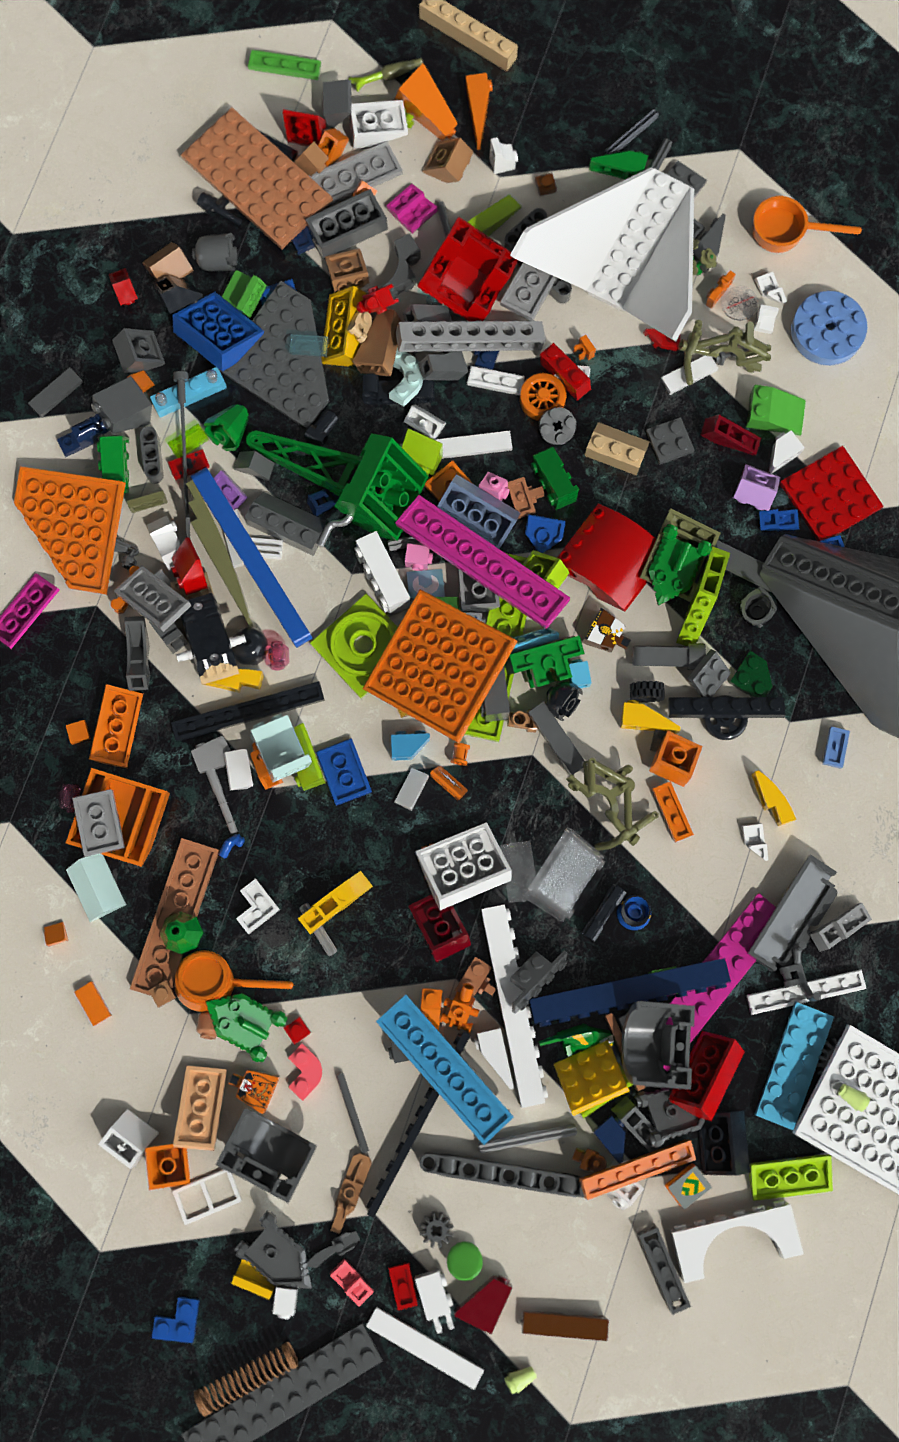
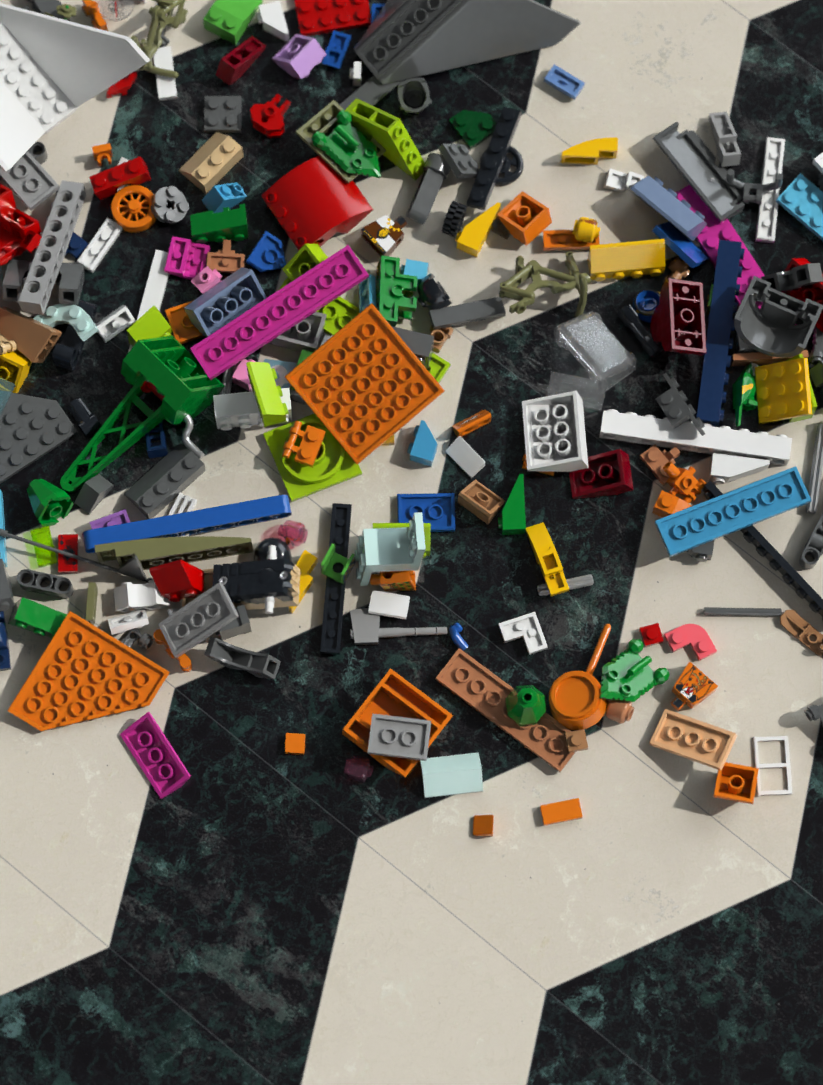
camera: 70 degrees left, 5 degrees down
(116, 726) = (304, 704): orange slope -> none
(128, 1139) = (698, 815): white slope -> none
(141, 540) = (128, 621): none -> white plate
(256, 697) = (332, 558): none -> bright green piece
(268, 1155) = (756, 690): dark grey piece -> none
(363, 638) = (309, 446): none -> orange plate
(372, 854) = (513, 514): none -> green slope
(373, 819) = (480, 501): none -> medium nougat slope
(391, 575) = (267, 393): none -> lime slope
(460, 754) = (449, 402): orange bush -> none
(465, 313) = (30, 241): none -> red plate
(511, 460) = (186, 258): none -> dark pink slope
(585, 472) = (223, 196): none -> dark azure slope
(623, 947) = (680, 317): none -> dark red brick
(670, 873) = (626, 259): none -> yellow slope
(681, 482) = (269, 117): none -> red hinge
(681, 929) = (678, 268): none -> medium nougat plate
(685, 822) = (586, 229): none -> yellow head
(707, 921) = (680, 244): none -> blue tile
(711, 1048) = (796, 278): none -> dark grey arch
(741, 896) = (668, 206): none -> sand blue slope
(761, 546) = (355, 73): none -> white plate

